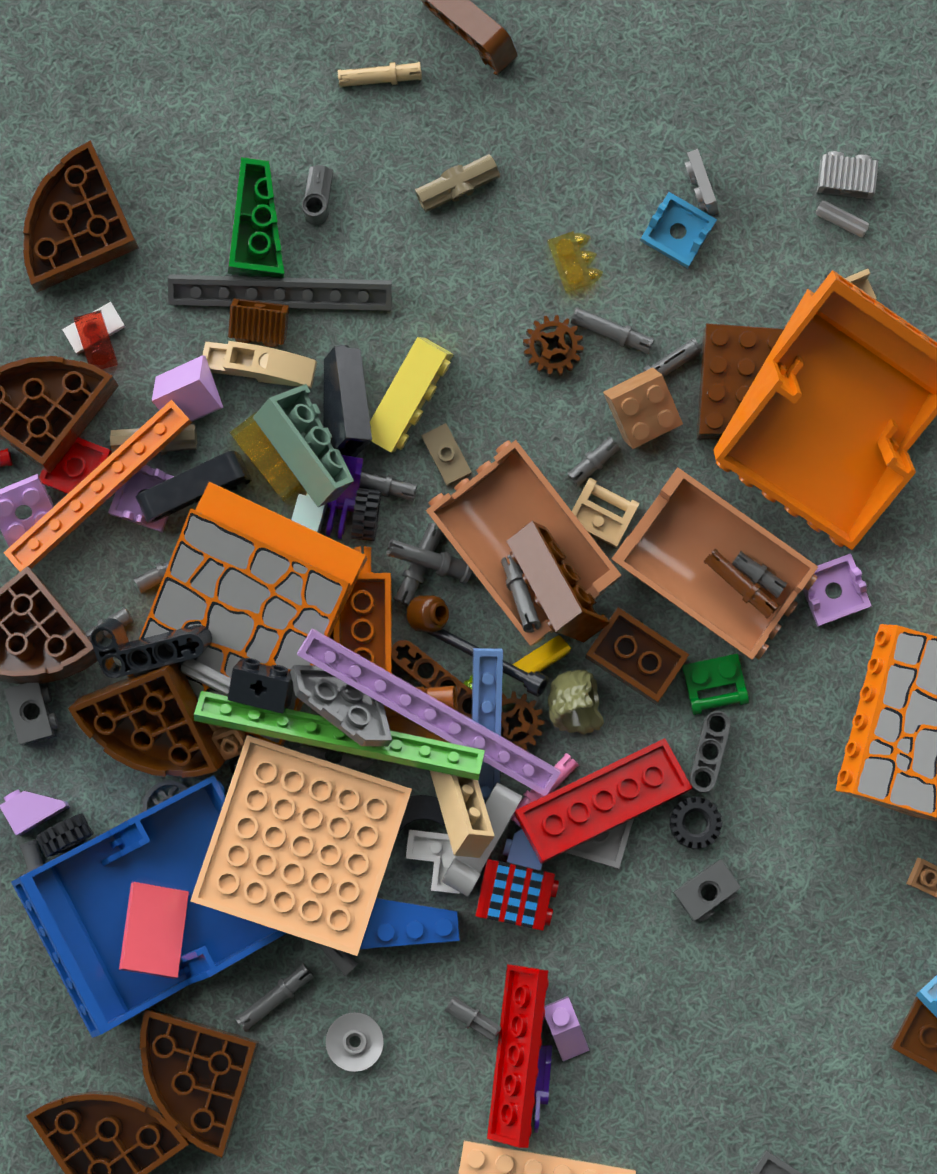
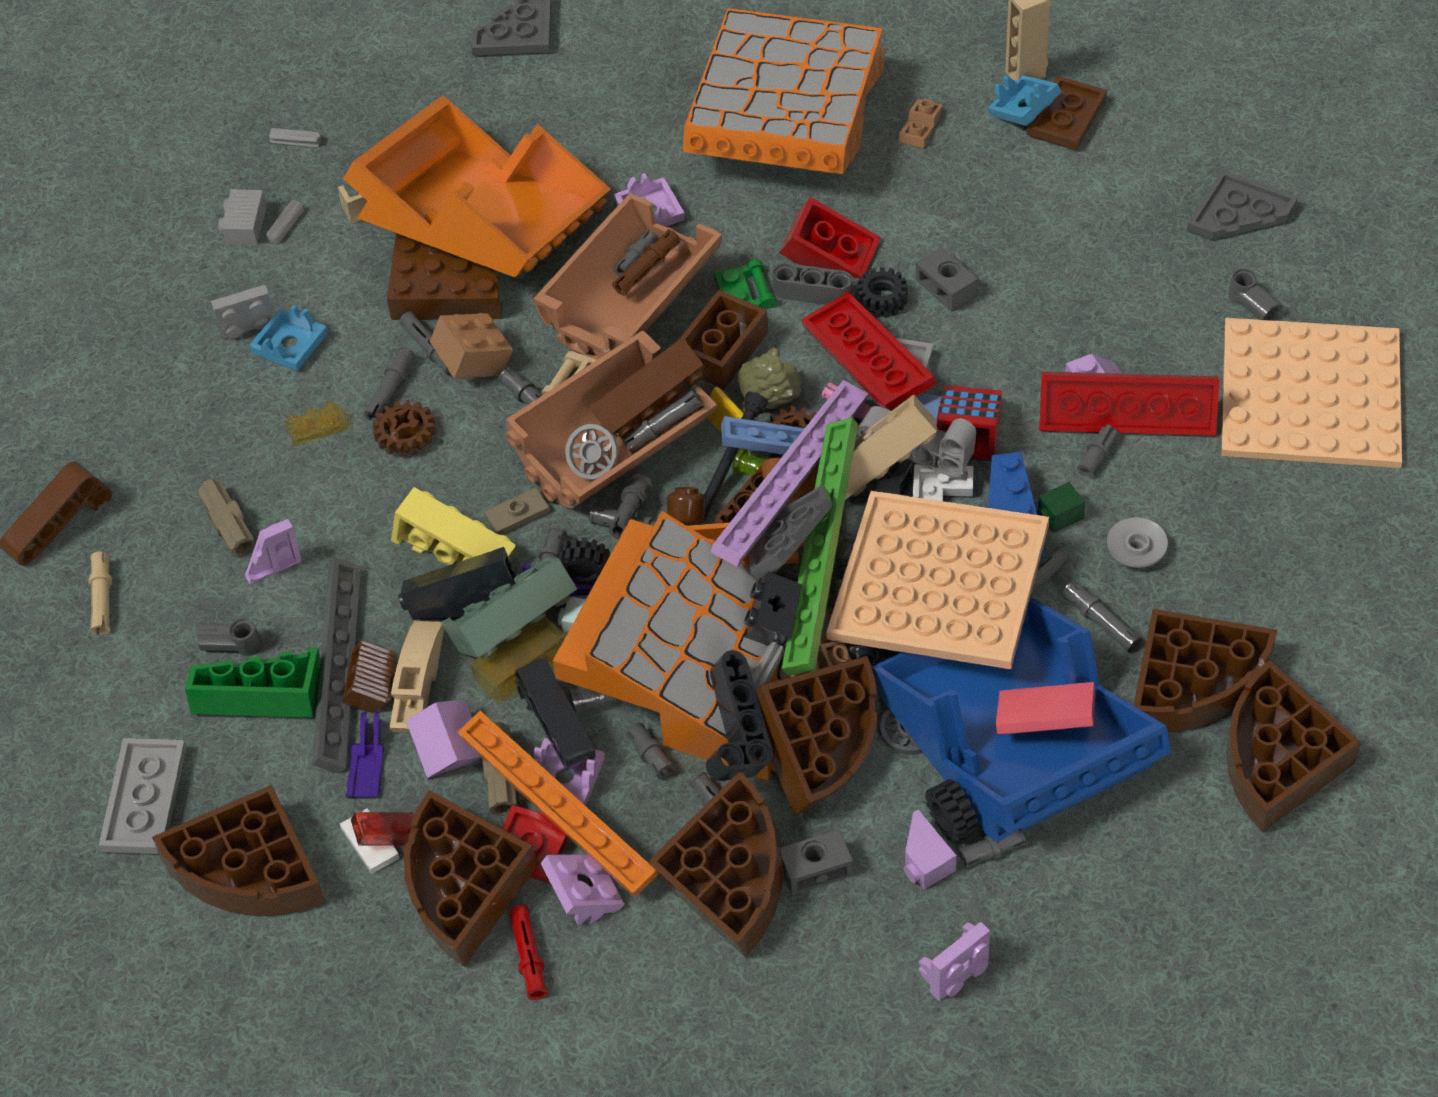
camera: 90 degrees left, 30 degrees down
(155, 131) = (142, 794): none -> light grey plate
(175, 322) = (366, 761): none -> dark purple arm
(402, 972) = (1062, 506): none -> dark green brick
(406, 230) = (273, 552): none -> lavender wing
(493, 524) = (591, 451): none -> light grey wheel
(767, 774) = (829, 240): none -> red slope

